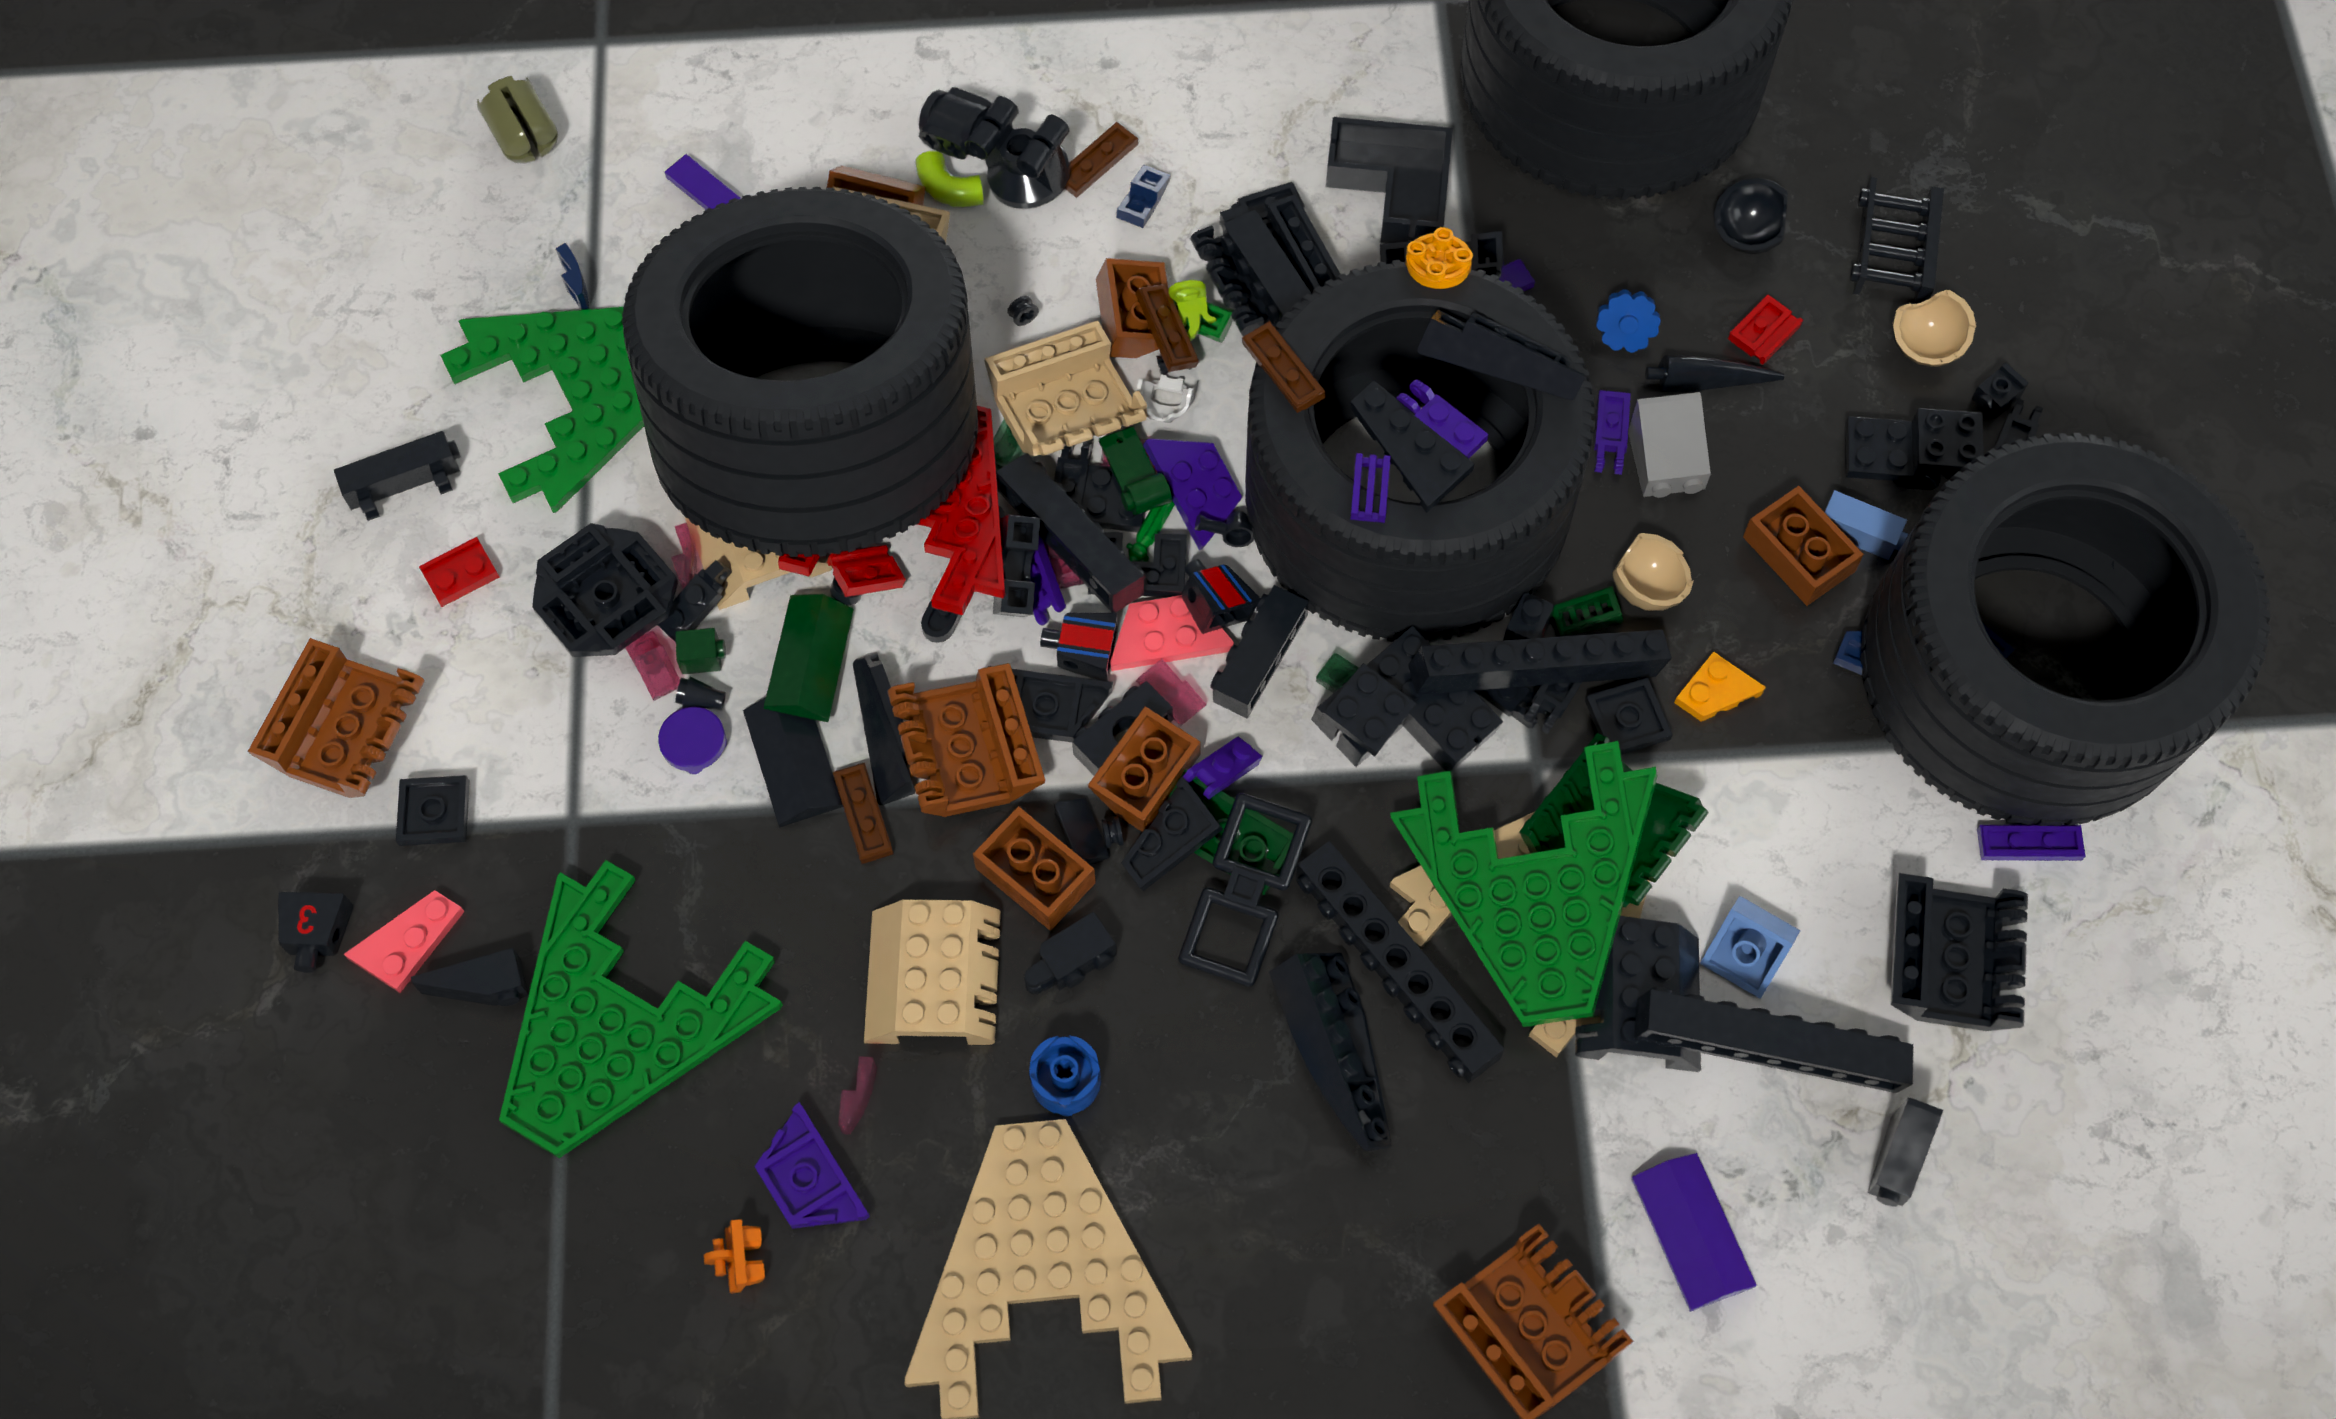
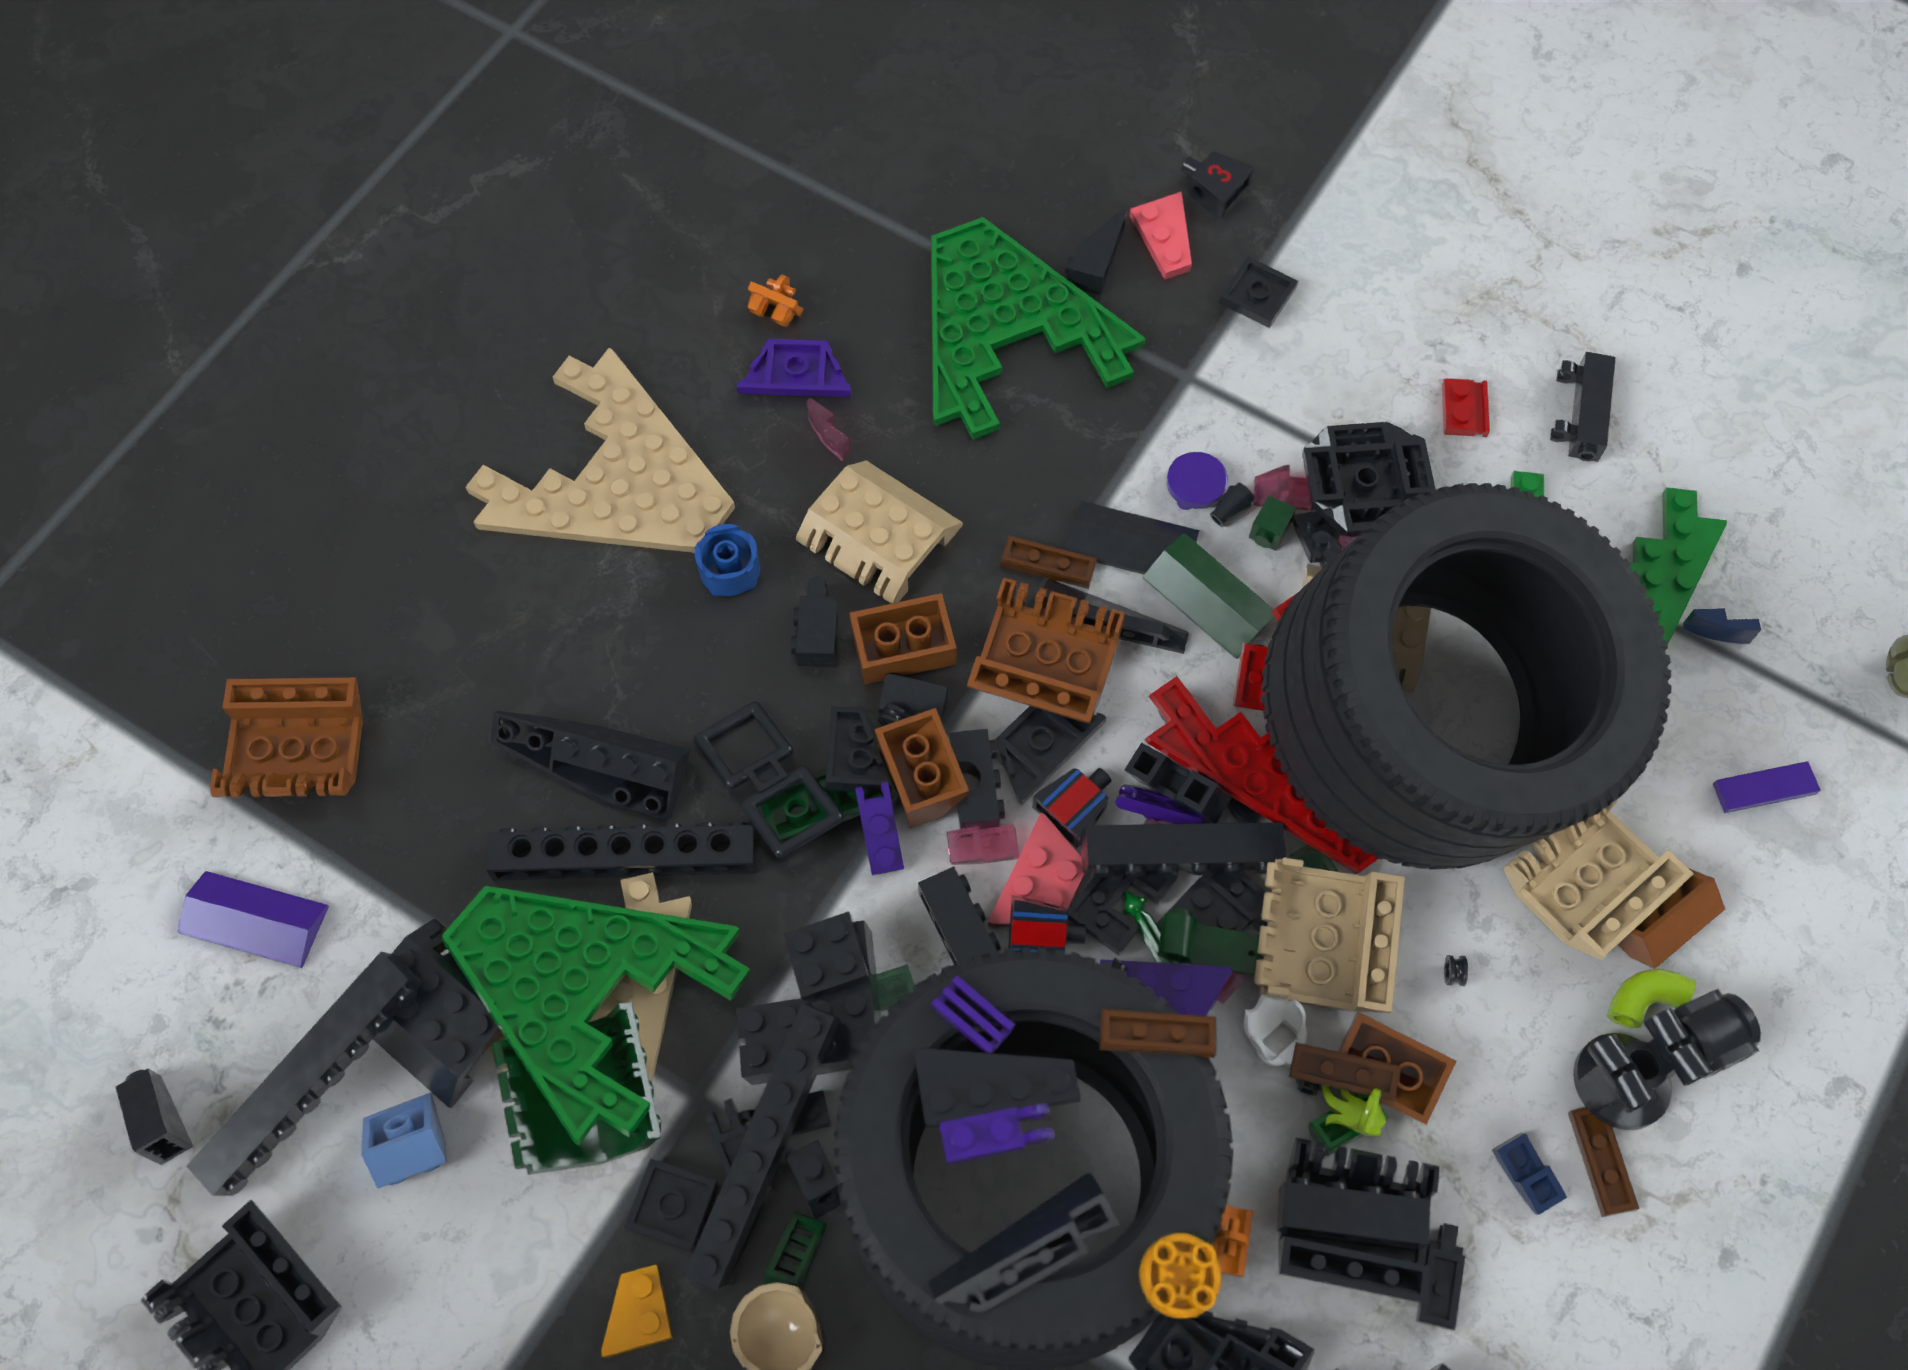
camera: 125 degrees right, 0 degrees up
(334, 720) = (1379, 262): dark orange slope -> none

